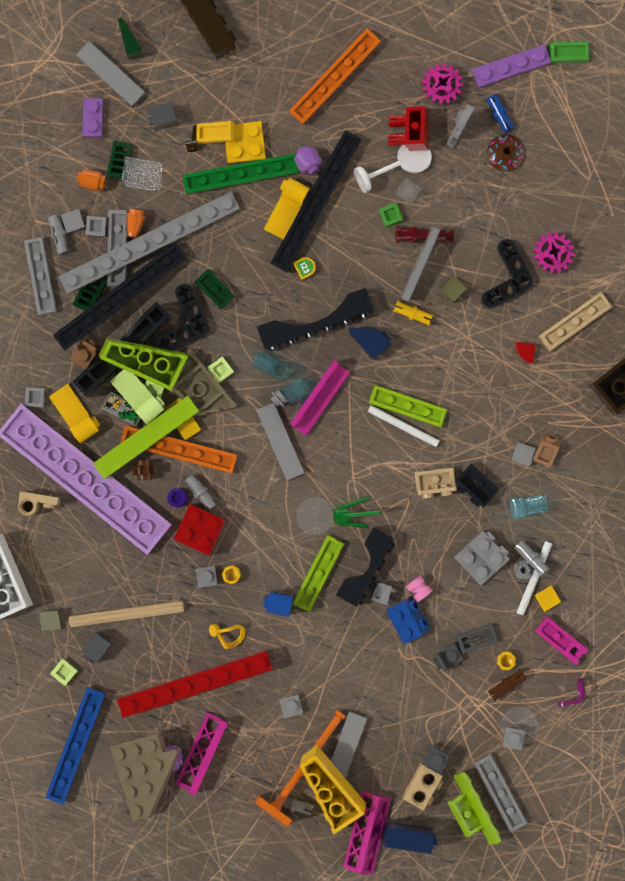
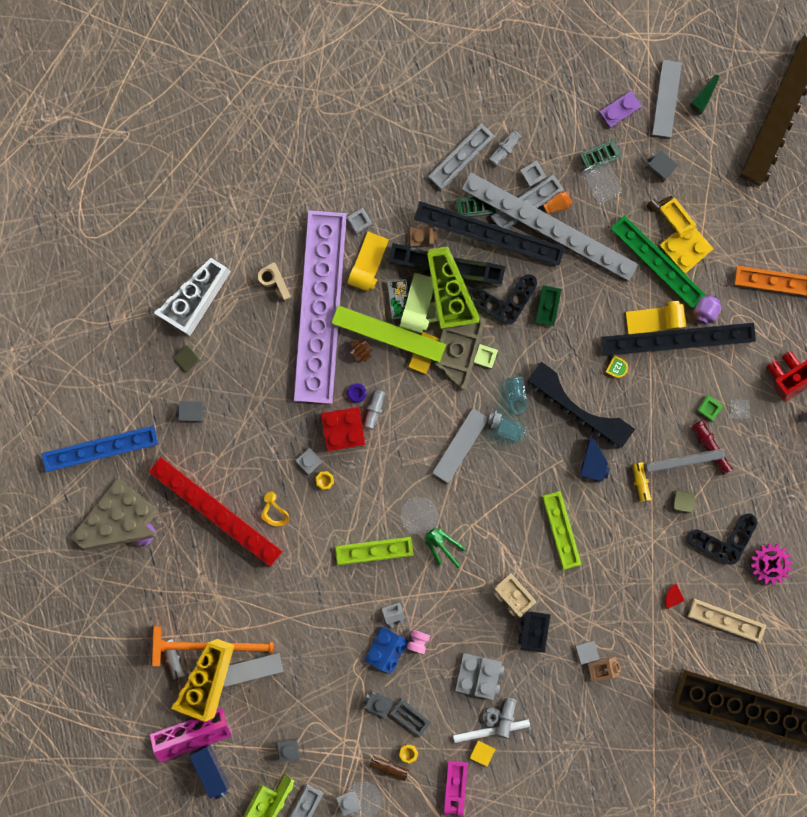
camera: 55 degrees right, 0 degrees up
(64, 672) = (153, 398): yellowish green tile -> none
(73, 221) = (524, 152): light grey tile -> none
(91, 180) = (568, 143): orange brick -> none
(126, 613) = (234, 416): tan axle -> none
(189, 452) = (400, 377): orange plate -> none
(208, 756) = (165, 562): dark pink fence -> none
(278, 603) = (327, 534): blue brick -> none
(291, 706) = (251, 602): light grey plate -> none
(319, 398) = (518, 453): dark pink fence -> none
(353, 589) = (430, 584): black arch -> none
(404, 426) = (542, 537): white bar -> none
(409, 160) = (765, 393): white piece -> none
(417, 784) = (258, 750): tan brick -> none
(524, 506) = (543, 681): clear light blue piece -> none

